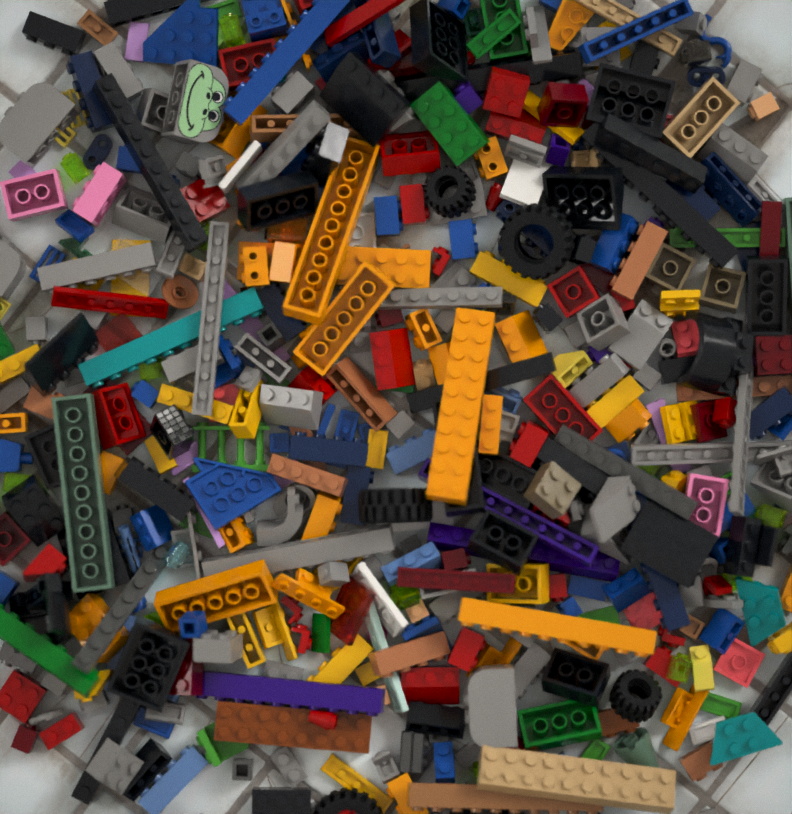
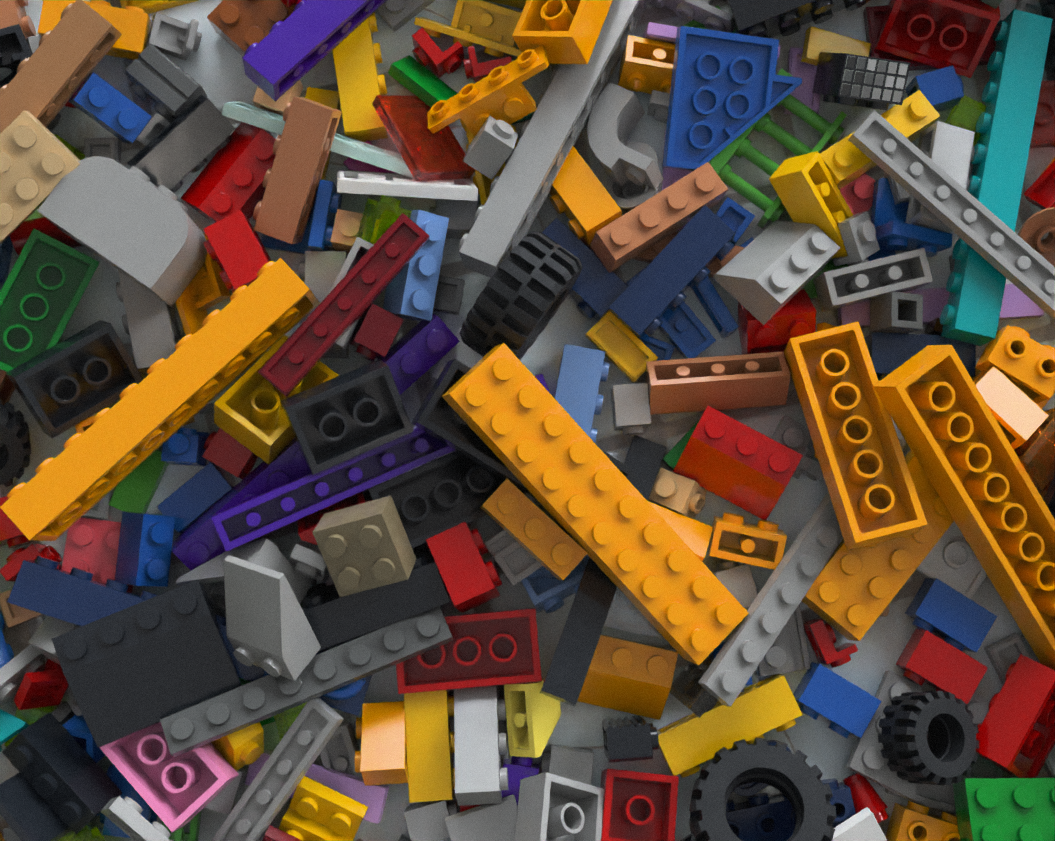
camera: 125 degrees right, 5 degrees down
(389, 317) = (797, 506): dark red brick -> none

